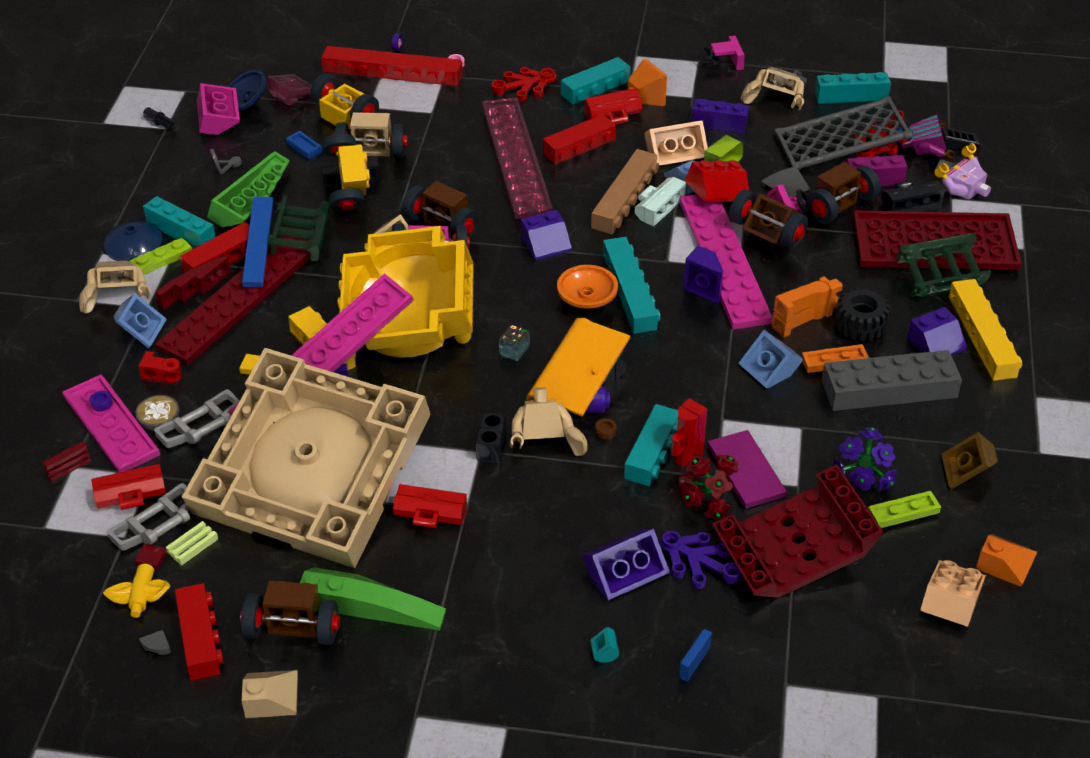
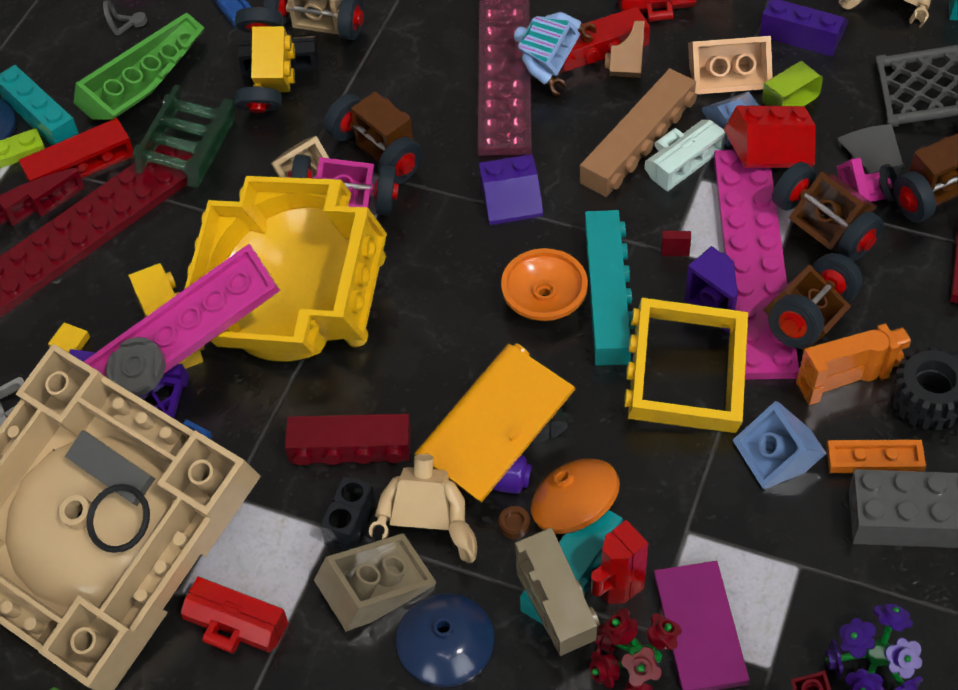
camera: 15 degrees right, 10 degrees up
(258, 242) = (119, 156): blue tile -> none
(323, 357) = (136, 365): none -> dark grey tile
(325, 419) = (108, 465): none -> dark grey tile
(349, 465) = (146, 518): none -> black tyre
(477, 394) = (348, 439): none -> dark red brick
(514, 342) = (421, 359): clear light blue brick -> none
(519, 473) = (372, 580): none -> dark tan slope
(549, 142) = (548, 44): none -> light blue torso
(578, 501) = (450, 656): none -> dark blue dish
(604, 146) = (626, 57): none -> medium nougat arch
(643, 403) = (575, 495): none -> orange dish
(649, 451) = (555, 592): none -> dark tan wedge
(669, 253) = (676, 243): none -> dark red tile
(695, 349) = (683, 415): none -> yellow window
(773, 270) = (814, 301): none -> brick

